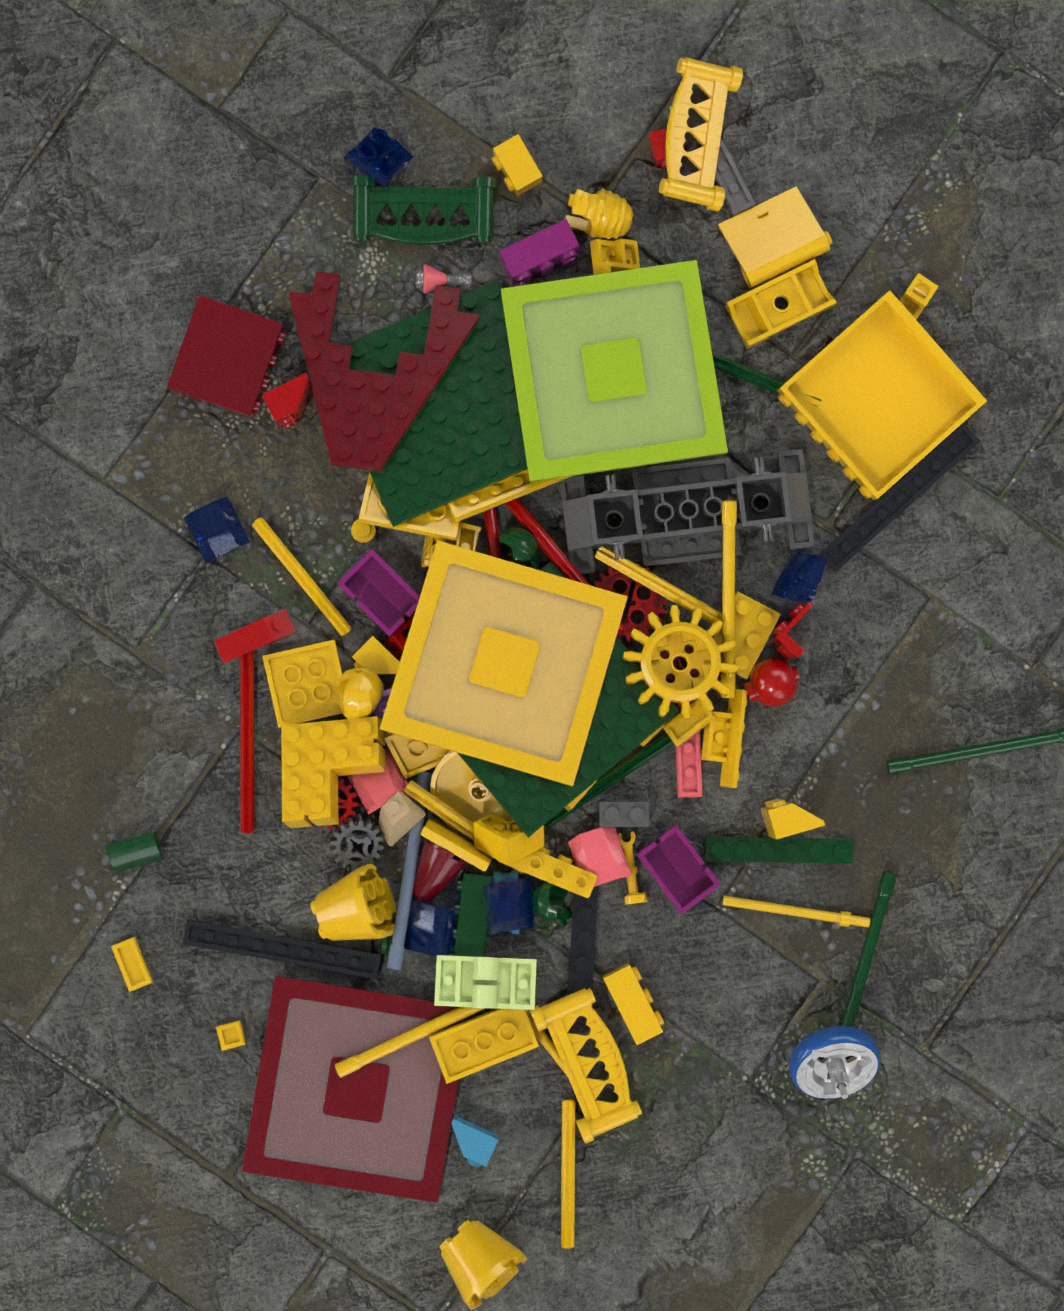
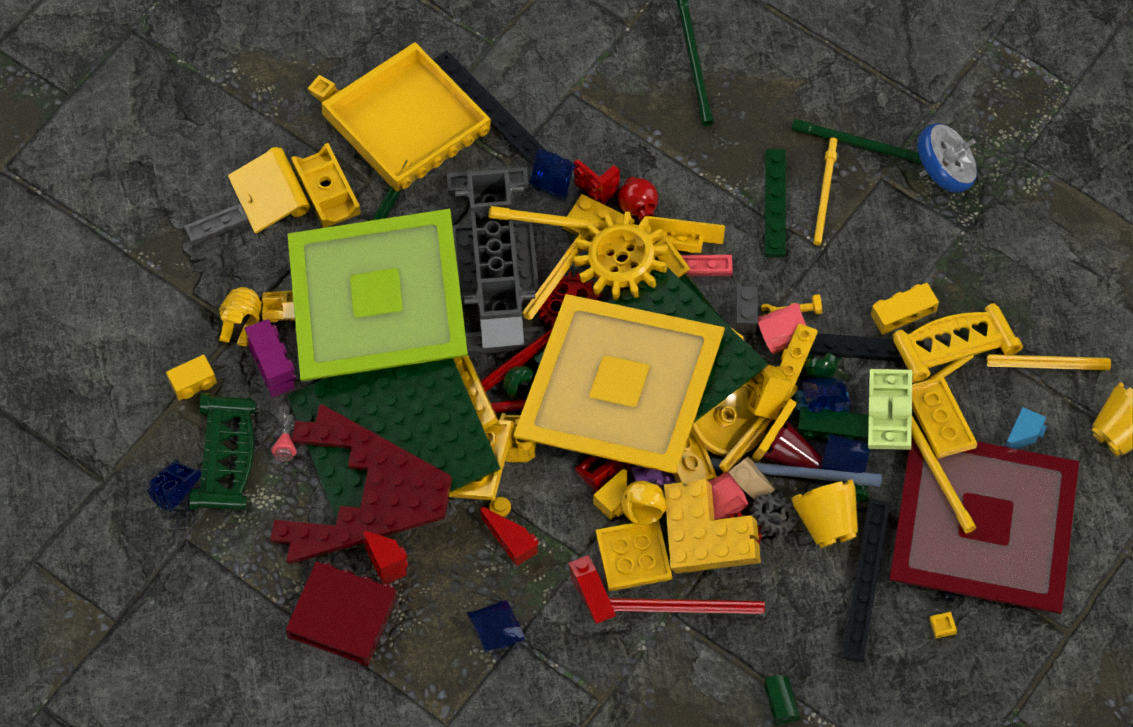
camera: 90 degrees left, 25 degrees down
(132, 964) = (882, 706): yellow tile -> none
(301, 576) = (538, 558): yellow axle -> none
(323, 544) = (511, 536): none -> red slope
(381, 592) = (556, 488): magenta piece -> none
(658, 147) = (187, 267): red brick -> none
(678, 869) = (794, 274): magenta piece -> none
(715, 83) = (136, 225): yellow piece -> none
(787, 819) = (751, 185): yellow slope -> none

